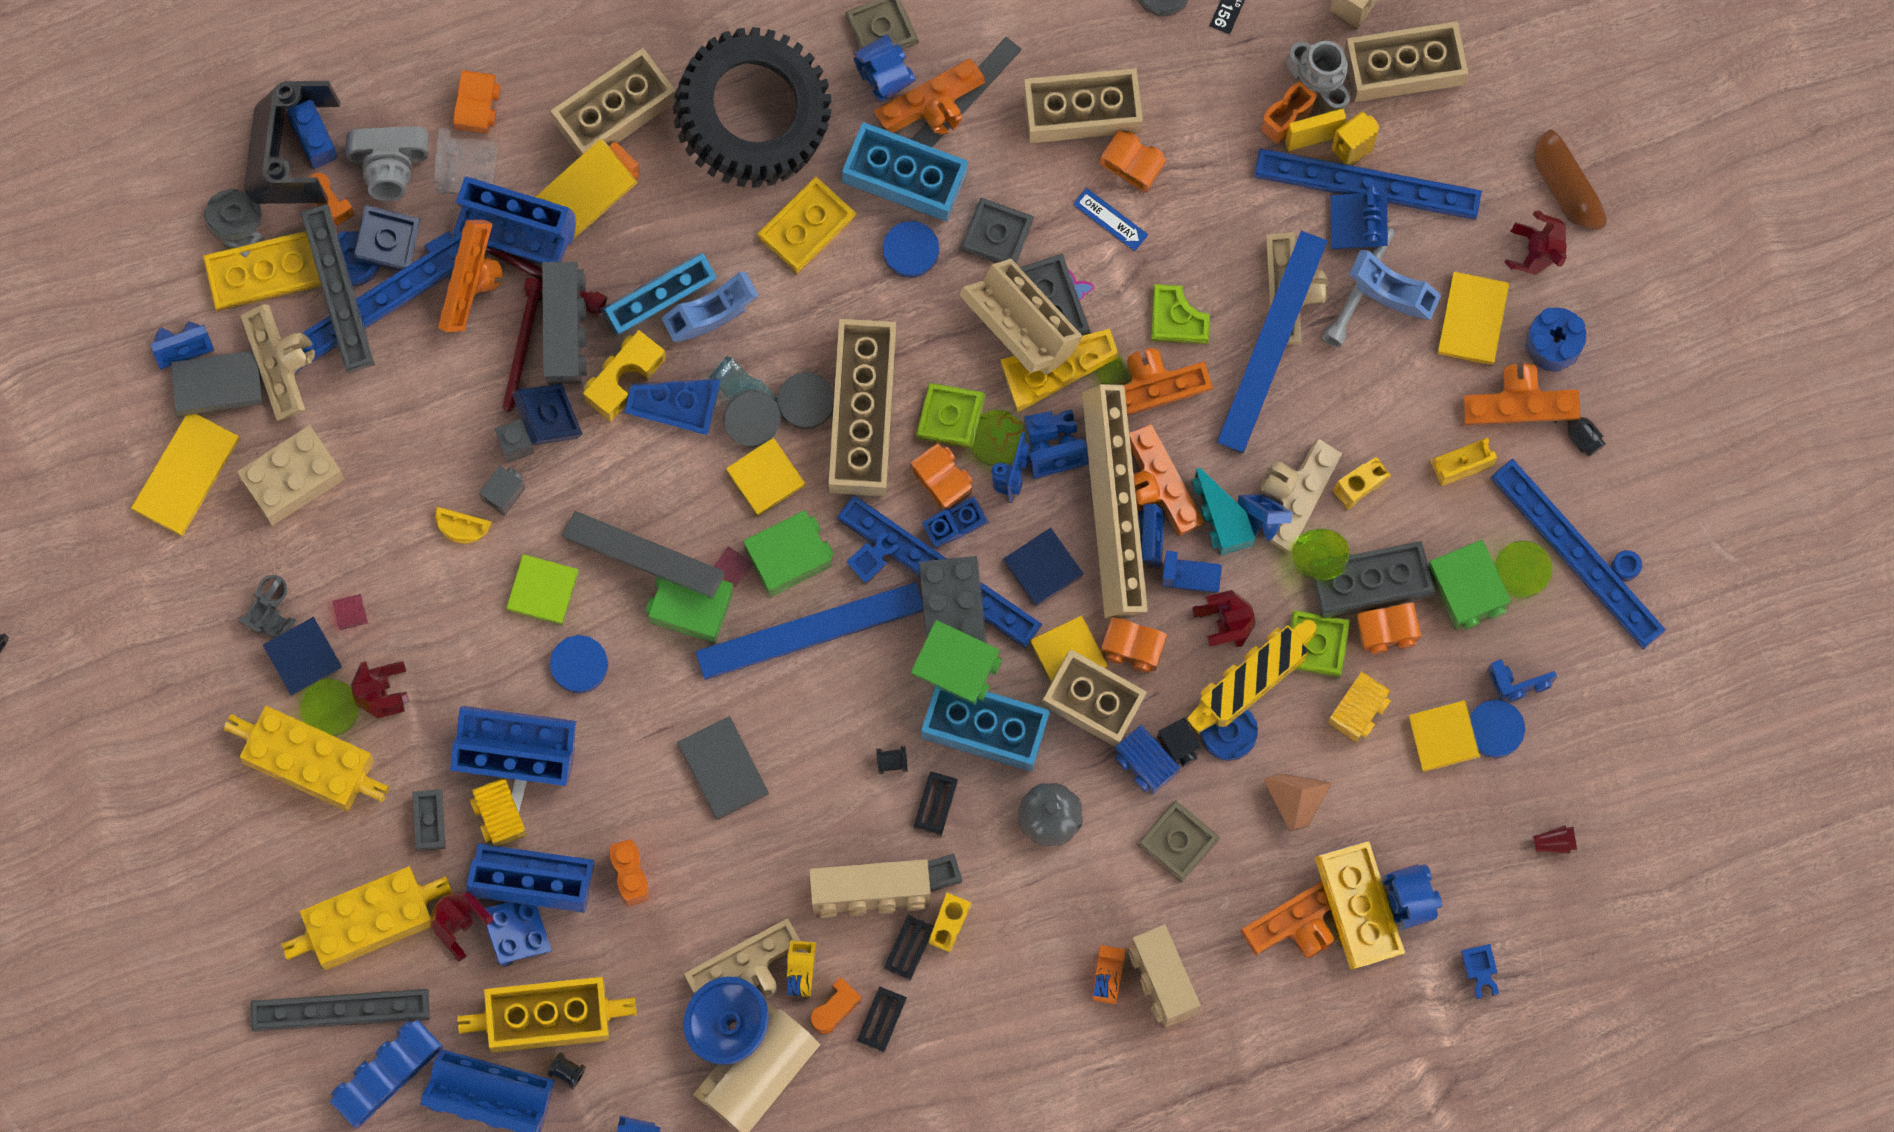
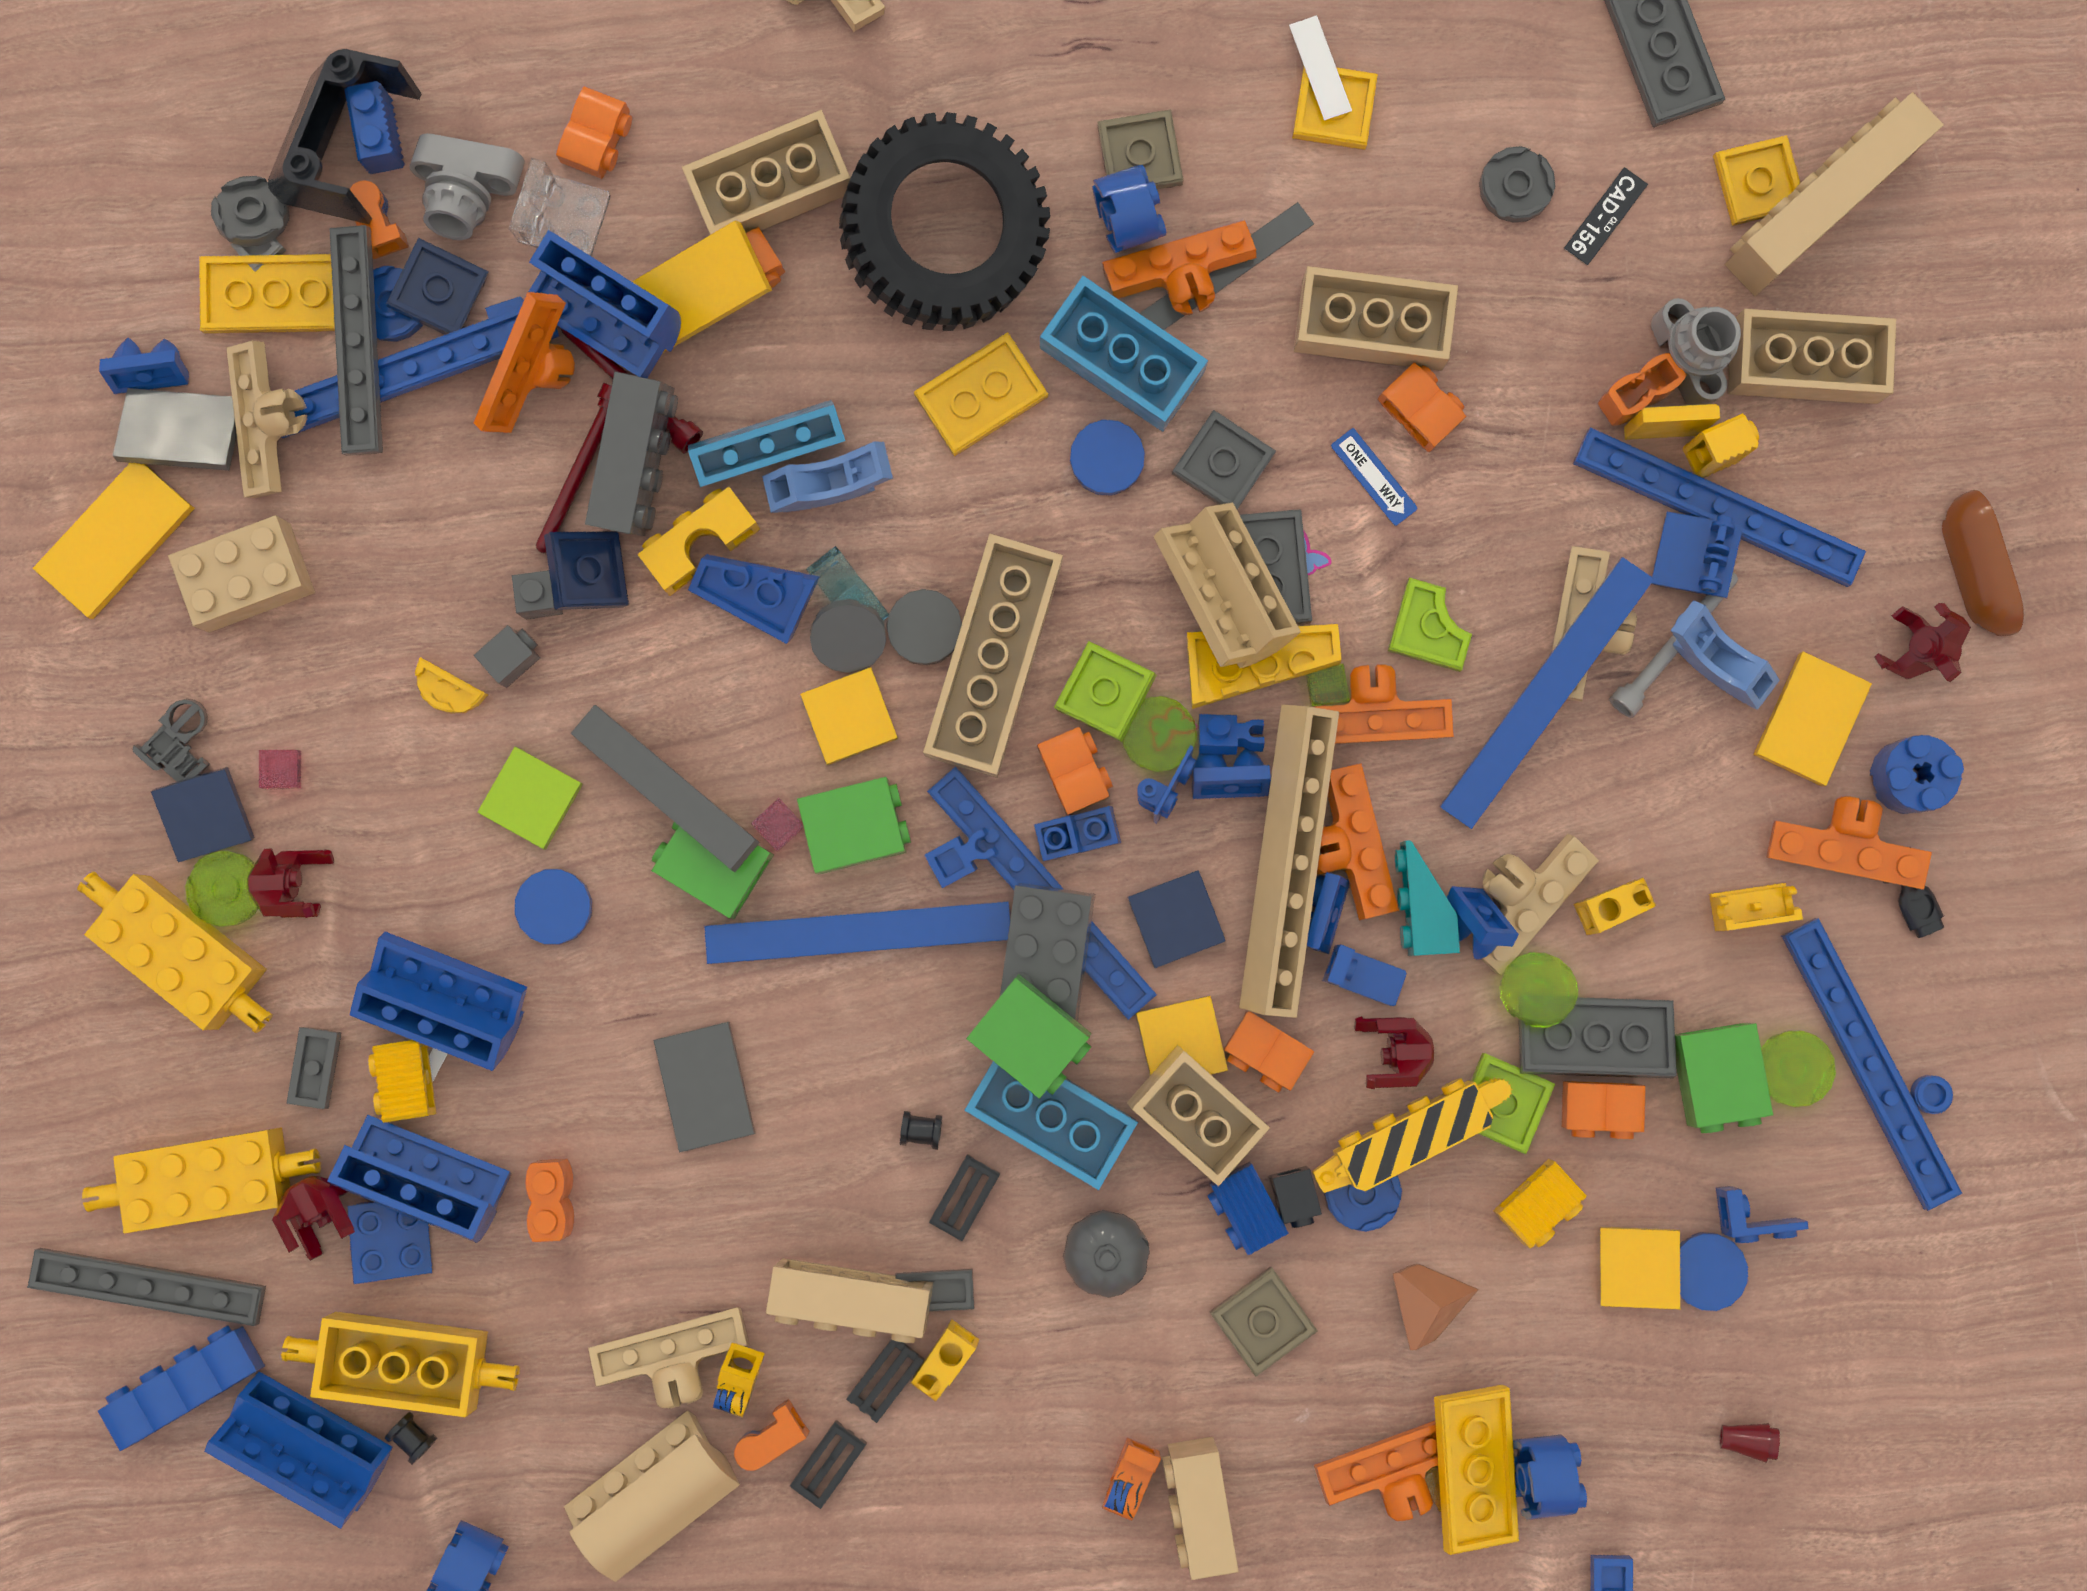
camera: 15 degrees right, 10 degrees up
(712, 1013) = (602, 1438): blue dish -> none

